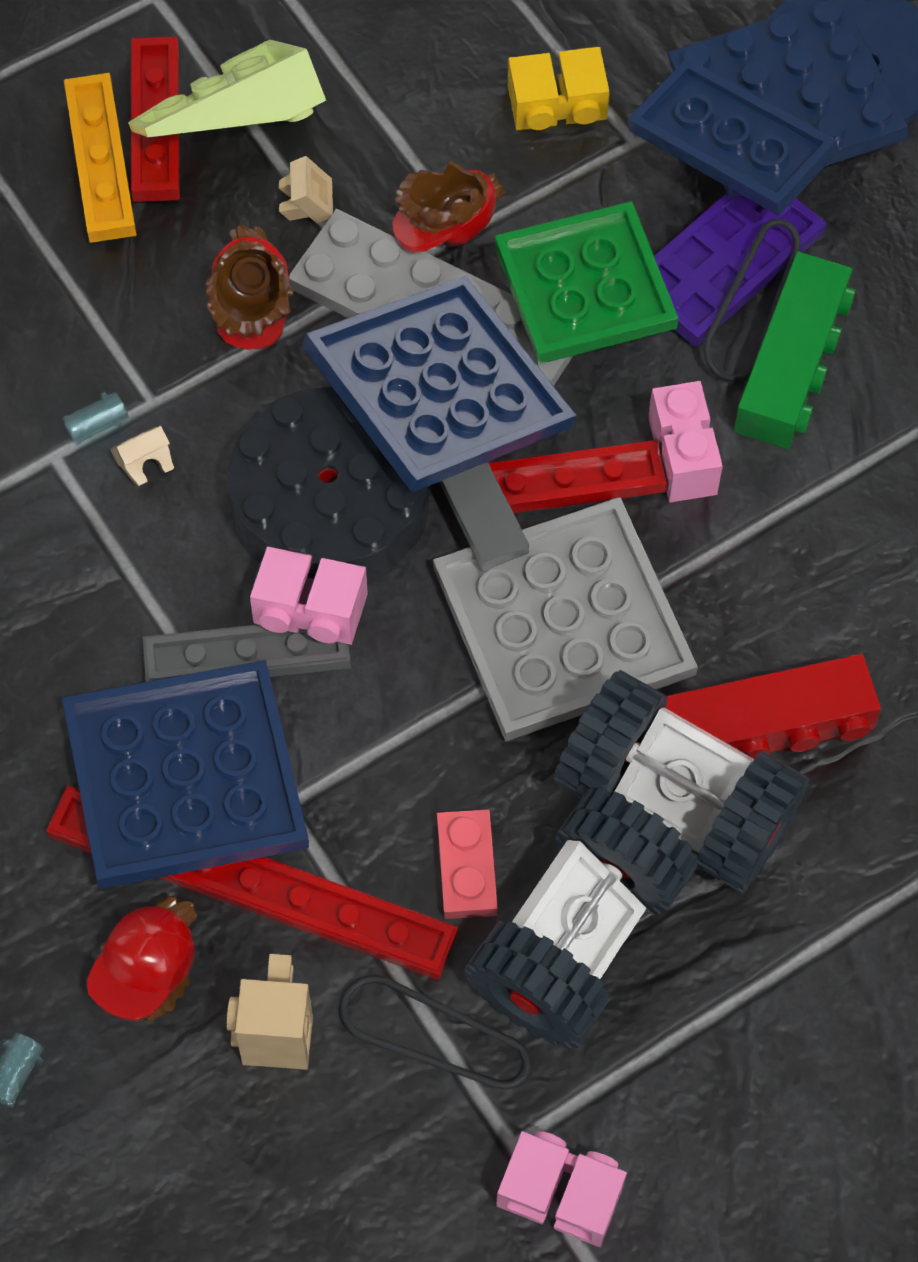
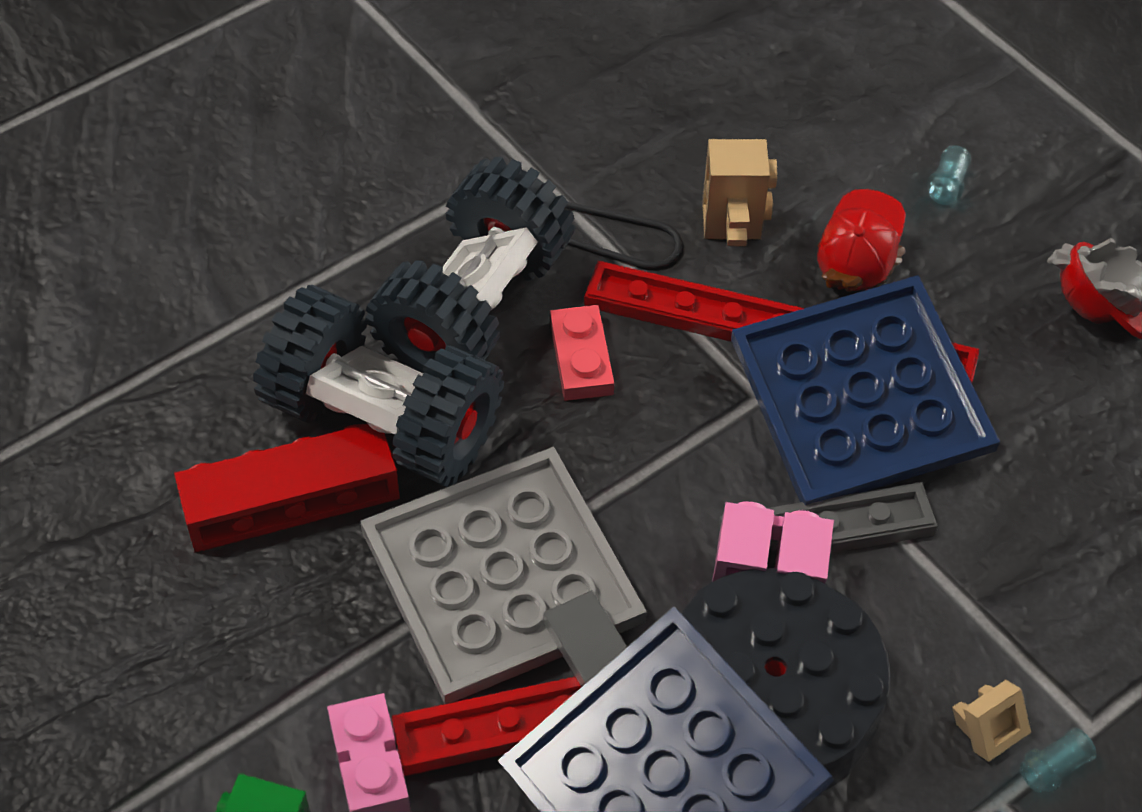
camera: 175 degrees right, 10 degrees down
(535, 1176) = (495, 129): bright pink piece -> none

